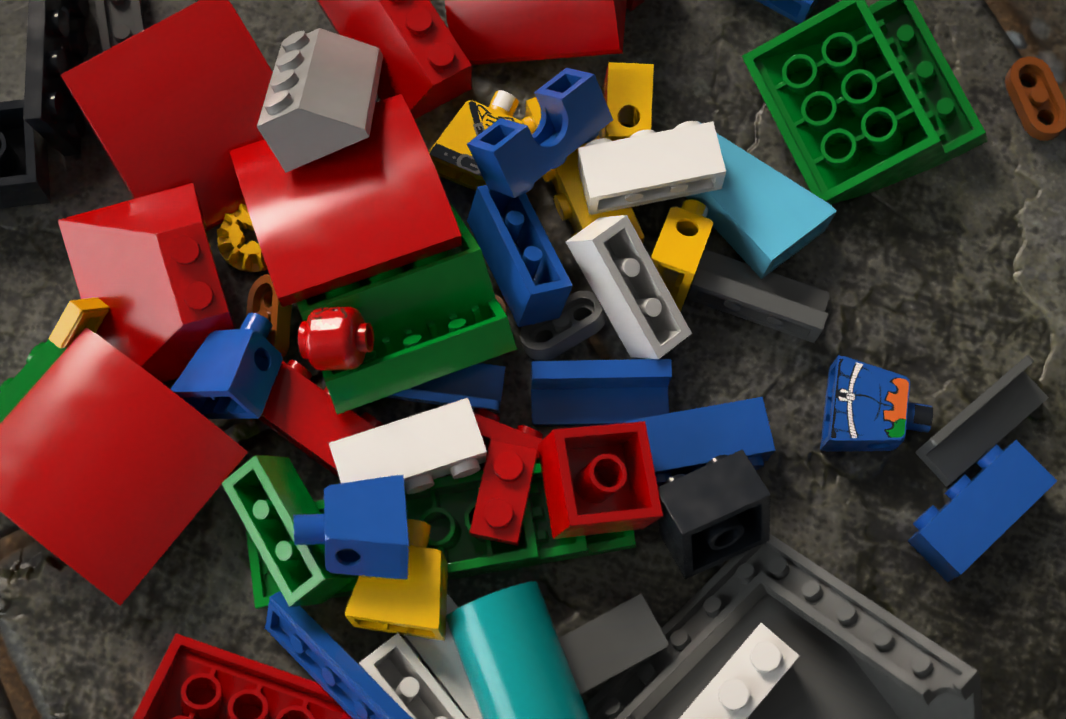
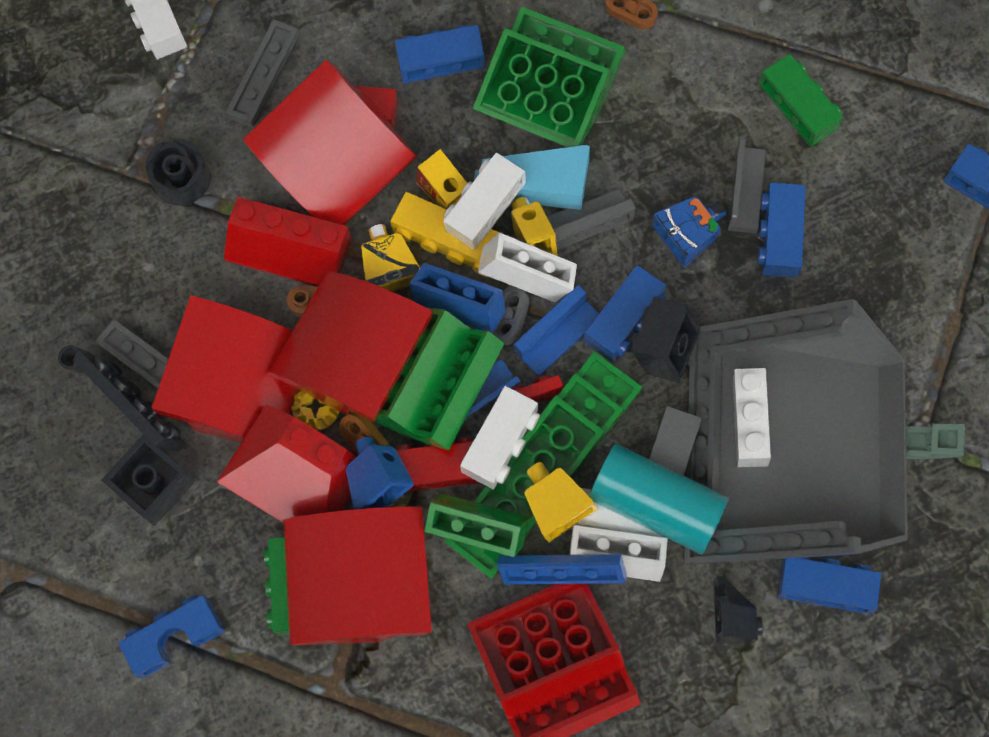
camera: 30 degrees left, 0 degrees up
(76, 317) = (275, 517): yellow tile -> none
(319, 96) = (293, 304): light grey slope -> none
(335, 338) = (417, 413): red head -> none
(361, 528) = (516, 488): blue torso -> none
(504, 492) = (561, 416): red plate -> none
(570, 116) = (418, 250): blue arch -> none
(599, 479) = (600, 369): red brick -> none

